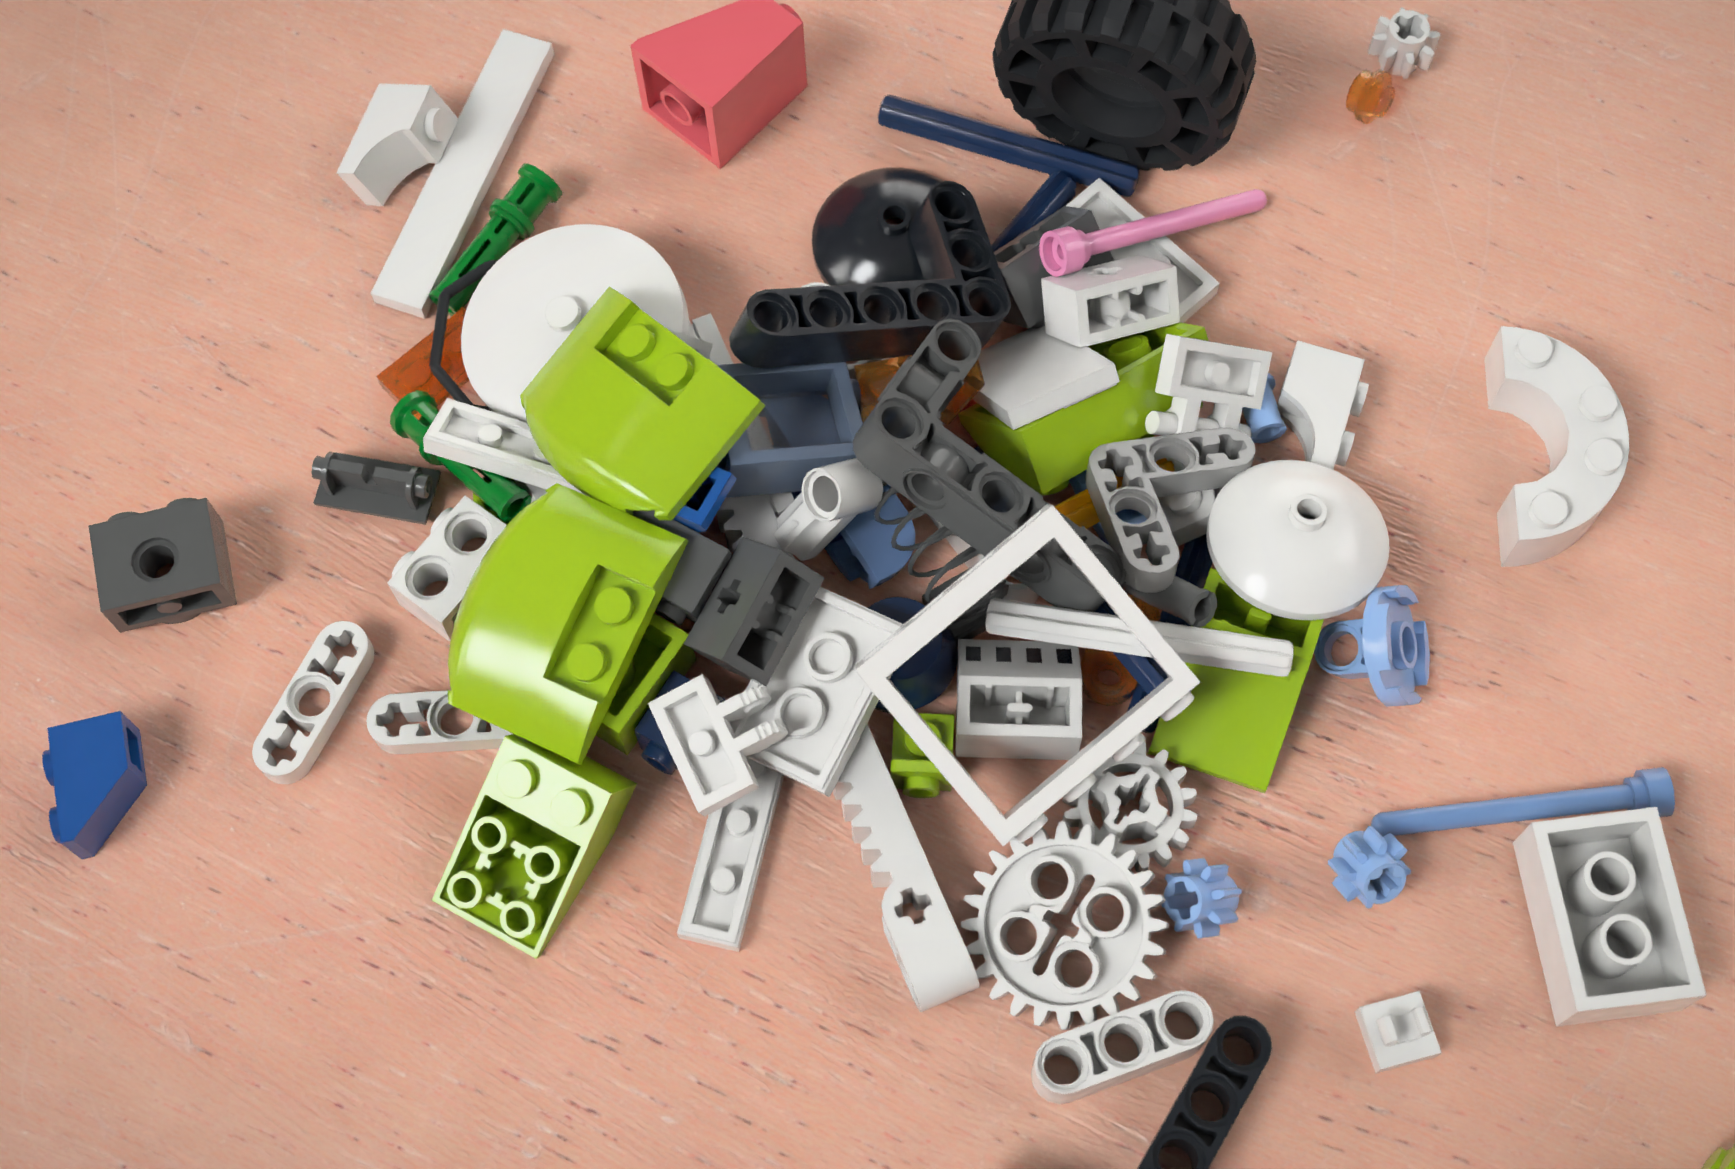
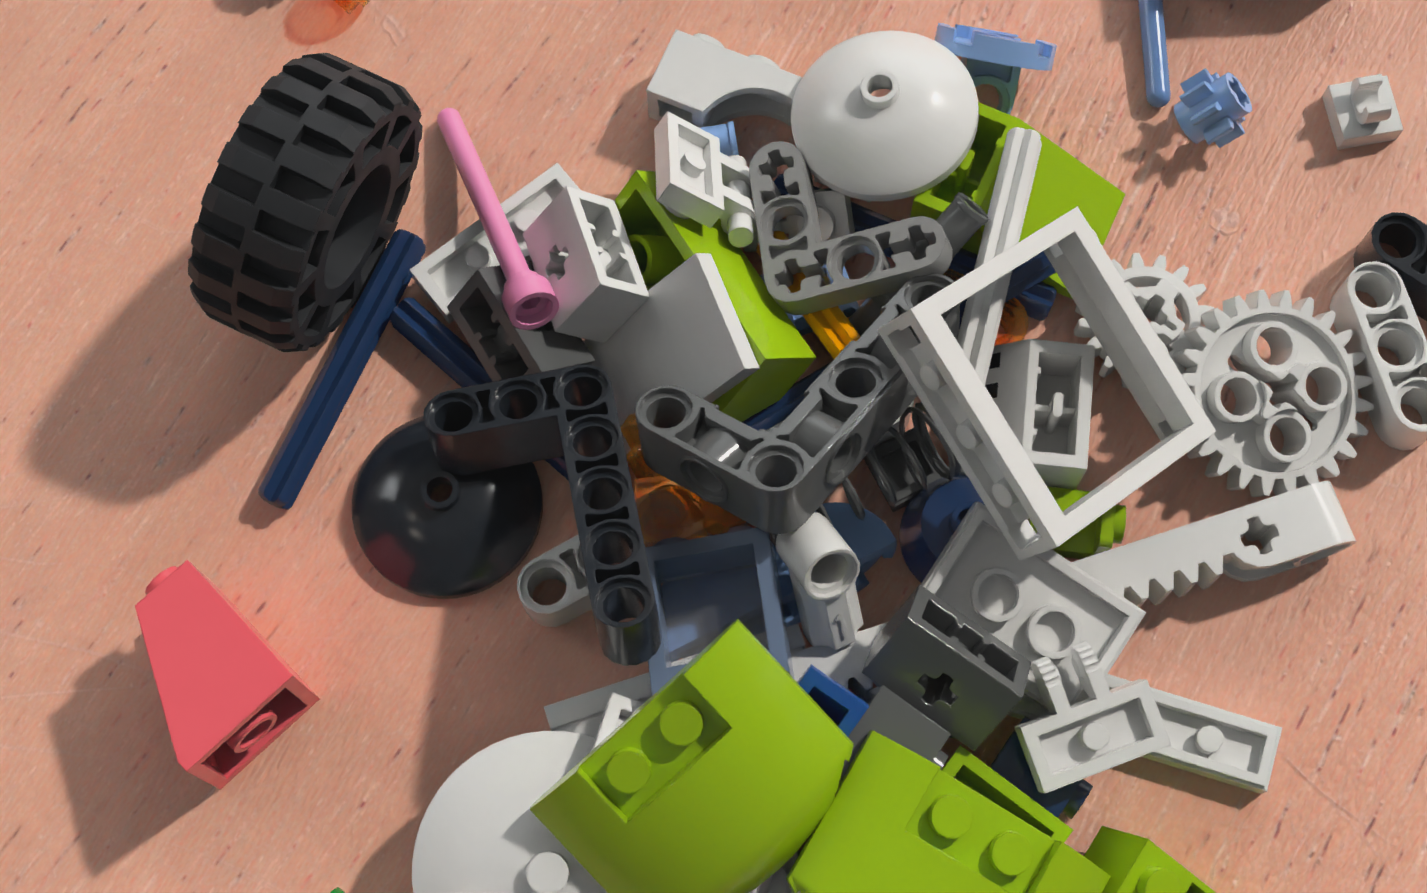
camera: 85 degrees left, 5 degrees up
(1201, 898) = (1241, 262): light blue gear -> none

